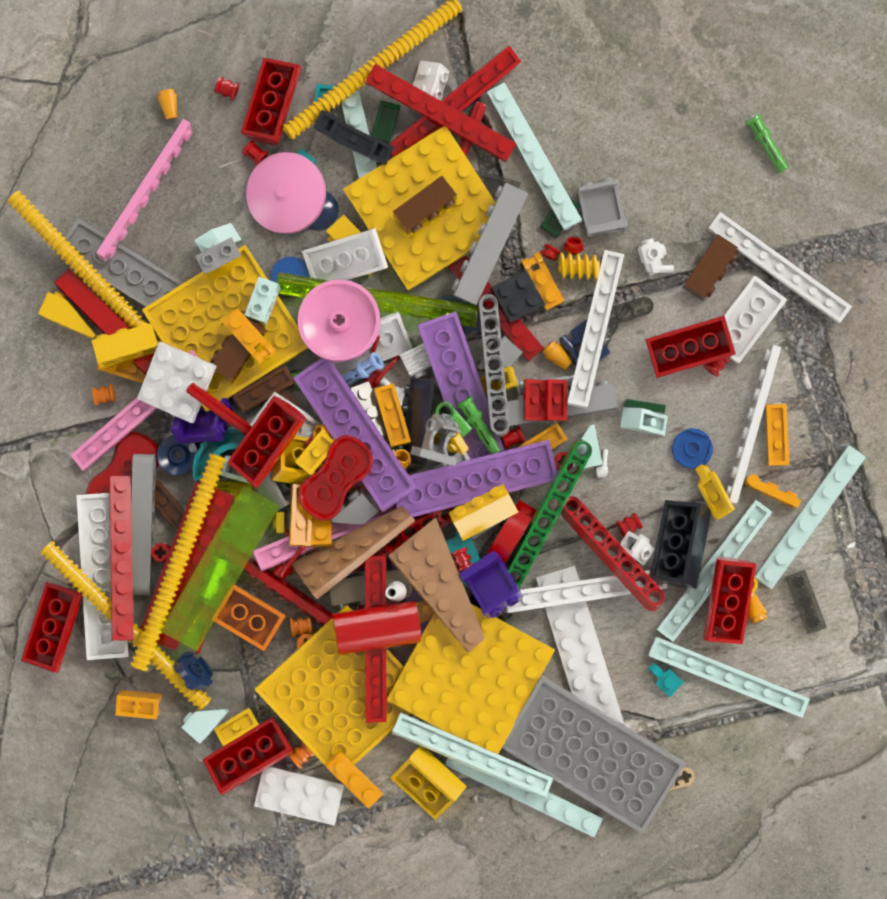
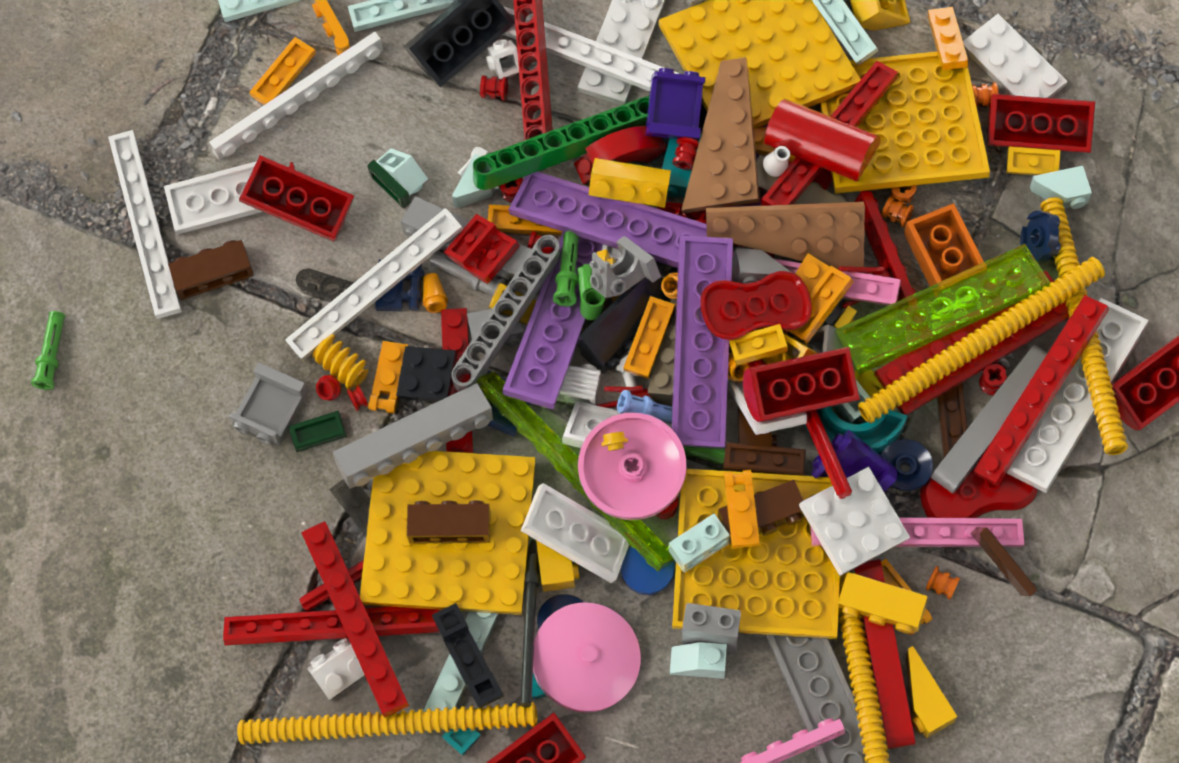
camera: 140 degrees left, 15 degrees down
(73, 431) = (1004, 561): none -> reddish brown tile
(138, 704) = (1121, 248): light orange hinge -> none
(254, 152) = (586, 727): red bush -> none
(352, 213) = (531, 582): none -> pearl dark grey bar
(359, 325) = (614, 441): none -> yellow plate
(385, 121) = (419, 661): dark green tile -> none
(534, 156) = (293, 509): light aqua plate -> none
(651, 254) = (260, 322): white piece -> none
(692, 448) = (374, 118): blue tile -> none
(714, 492) = (388, 58): yellow hinge -> none

